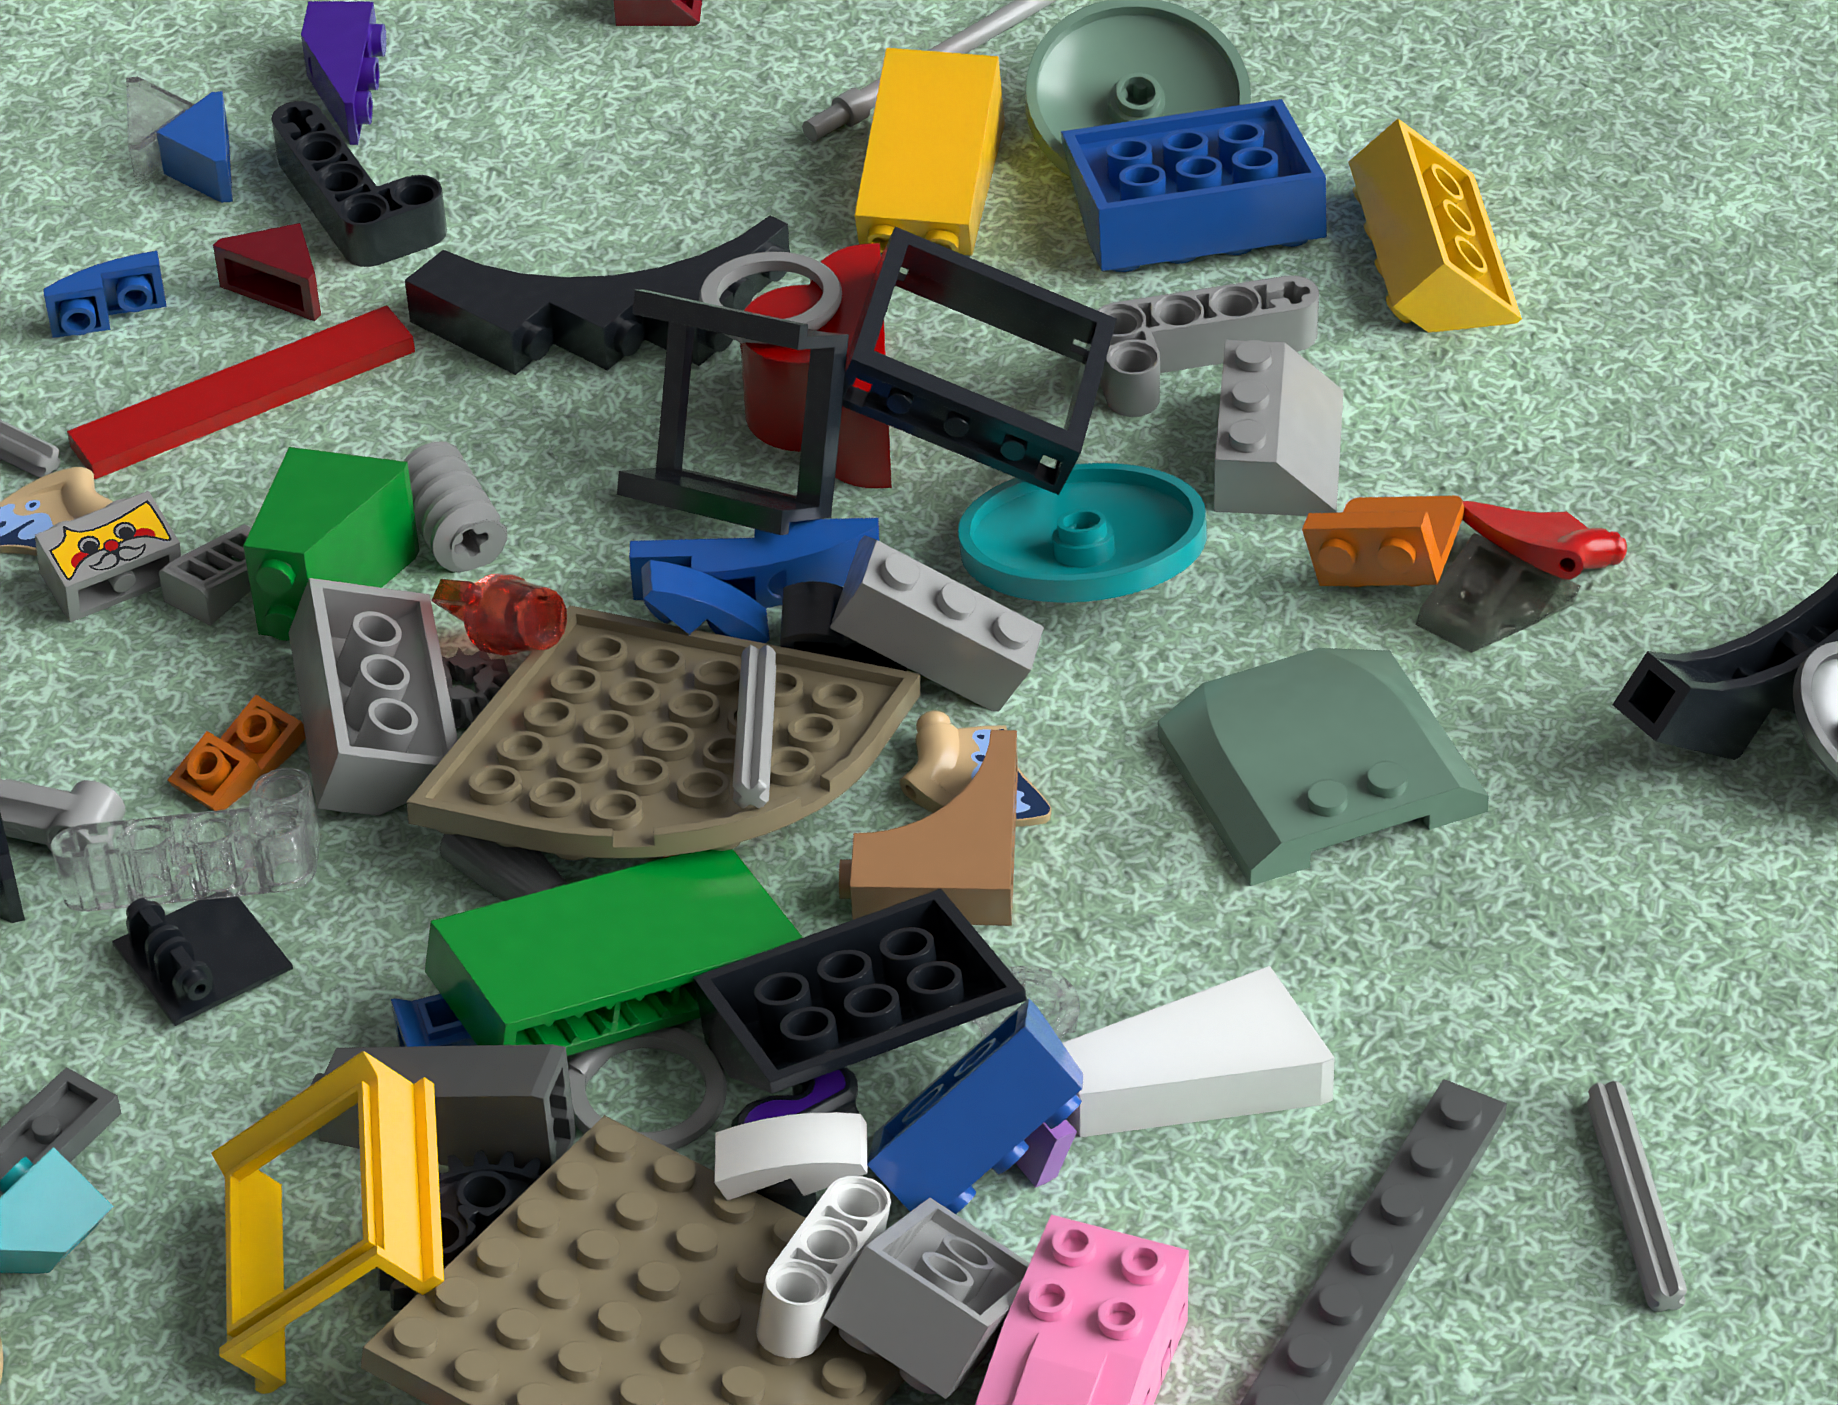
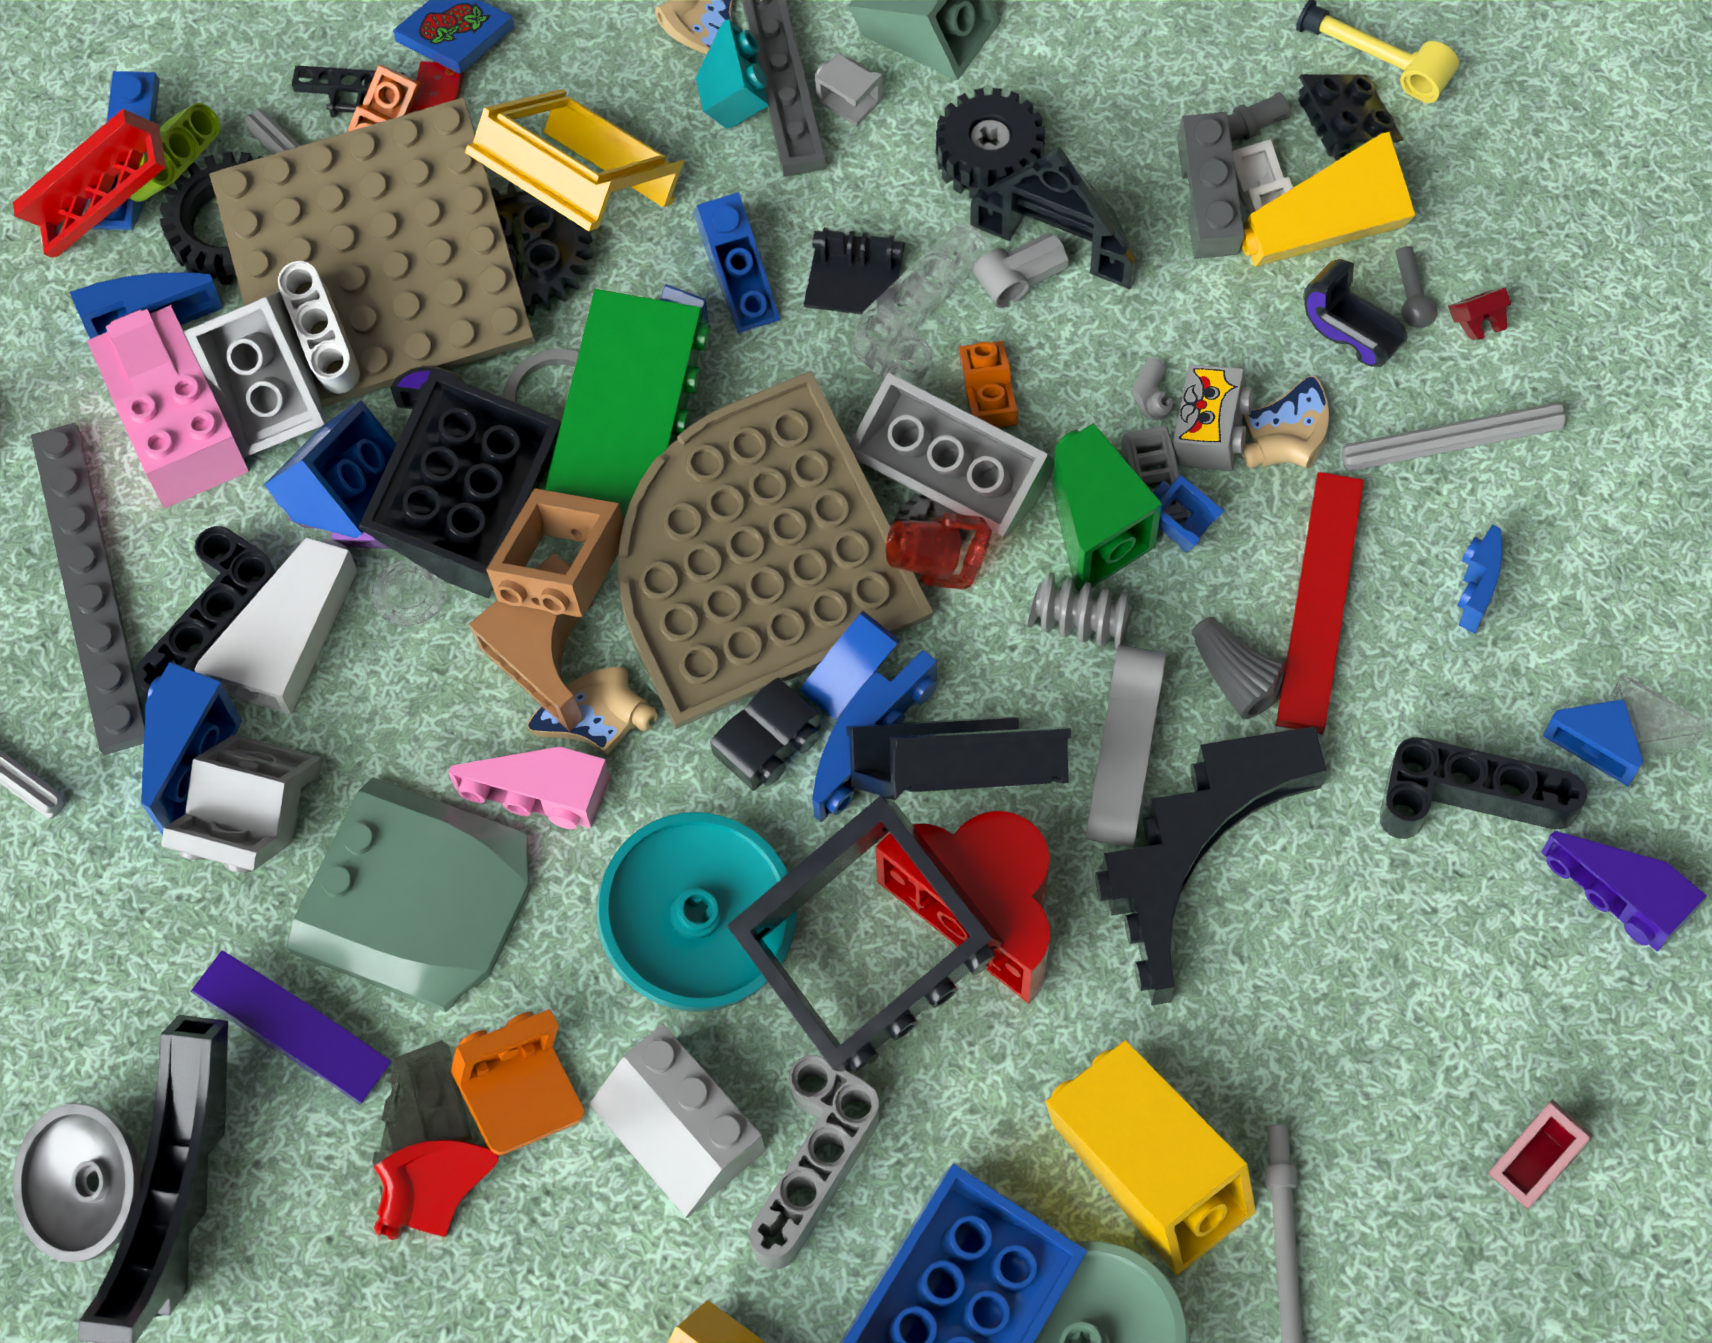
camera: 135 degrees right, 20 degrees up
(118, 638) = (1147, 393): none -> light grey arm
(241, 501) = (1201, 507): none -> blue window
(270, 268) = (1414, 688): dark red slope -> none
(286, 1048) = (736, 261): none -> blue slope
(390, 376) = (1243, 675): none -> dark grey piece
(483, 1100) = (629, 267): dark grey slope -> none
(525, 416) = (1125, 746): none -> light grey beam
(754, 727) = (697, 578): light grey axle -> none
(778, 261) = (1034, 807): light grey piece -> none
(802, 1147) = (400, 370): white slope -> none
(834, 797) = (565, 517): none -> medium nougat window
(935, 625) = (701, 755): light grey slope -> none
(1092, 738) = (543, 781): none -> bright pink slope
(1261, 1123) = (200, 620): none -> black beam
(1407, 910) = (241, 803): none -> light grey bracket
(1419, 993) = (182, 720): none -> blue slope
(1553, 727) = (291, 1026): none -> dark purple slope

